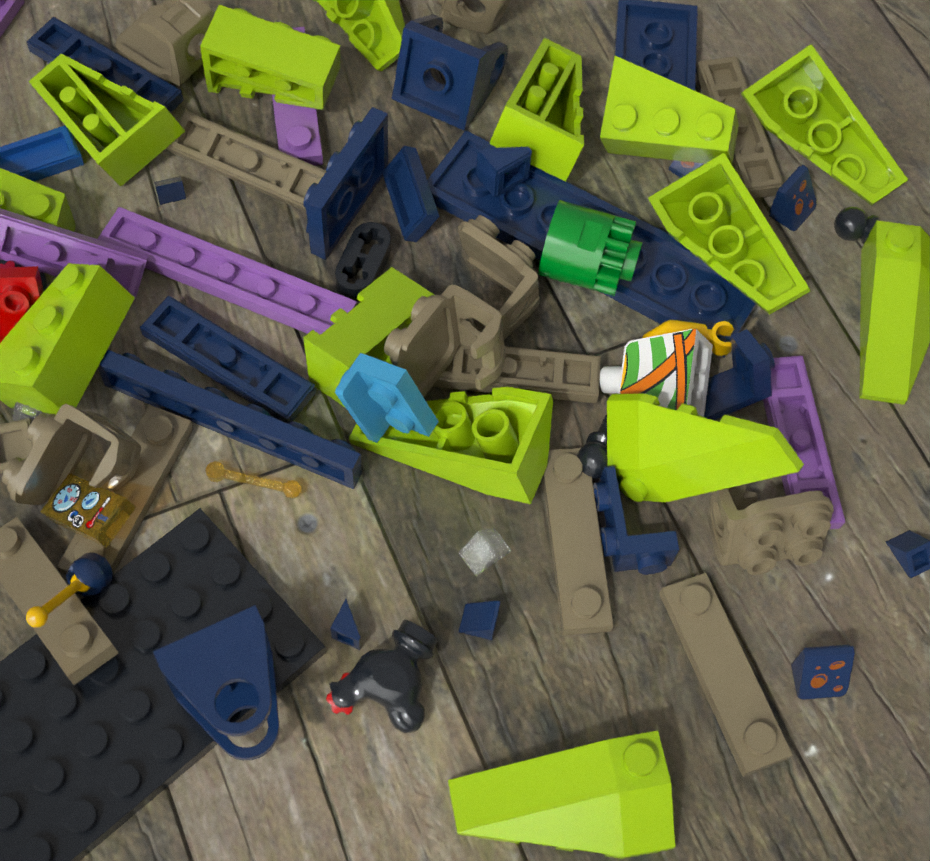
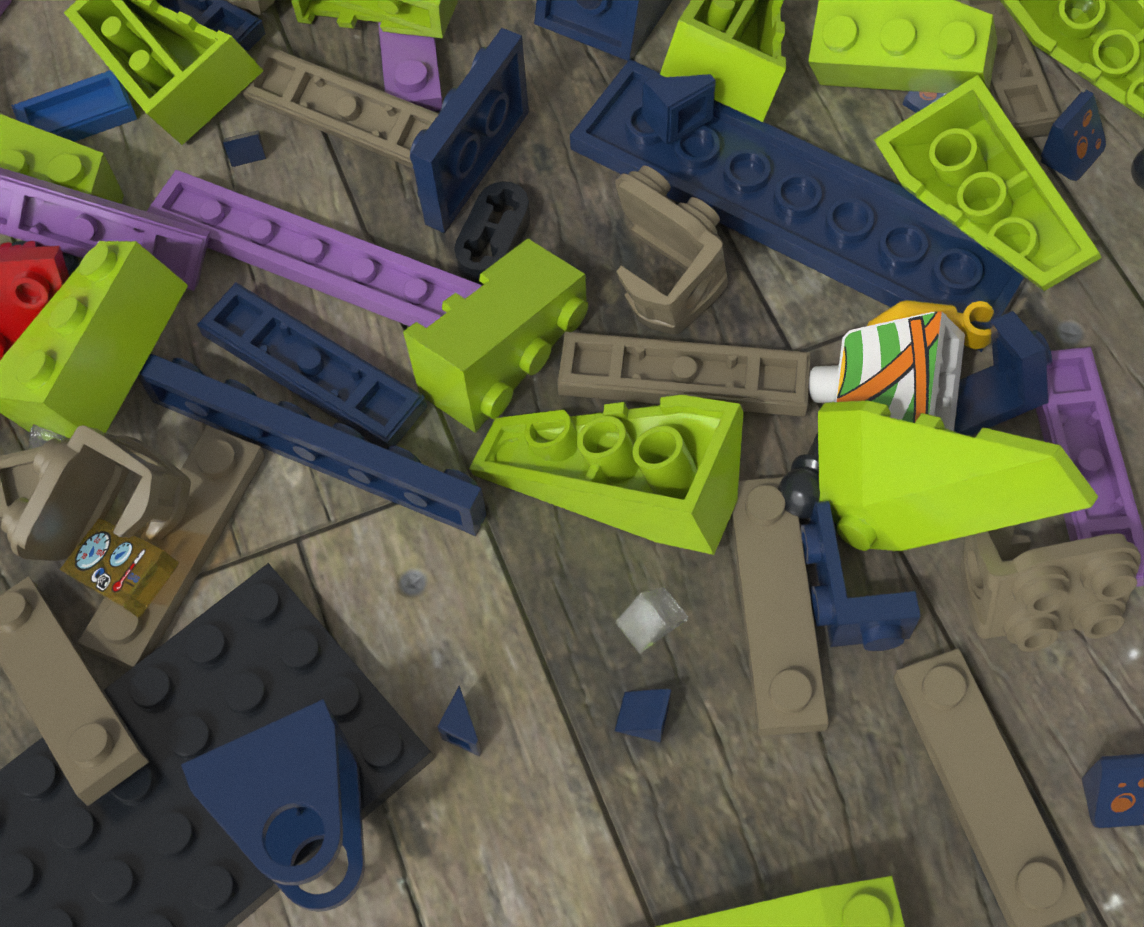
camera: 10 degrees right, 0 degrees up
(85, 578) = (110, 659): hinge -> none
(216, 472) = (293, 515): clear yellow hinge -> none
(384, 396) = (511, 411): dark azure bracket -> none
(389, 678) = (516, 798): black animal -> none
(410, 194) = (555, 144): dark blue tile -> none
(437, 332) = (579, 330): dark tan piece -> none
(589, 248) = (793, 207): green gear -> none

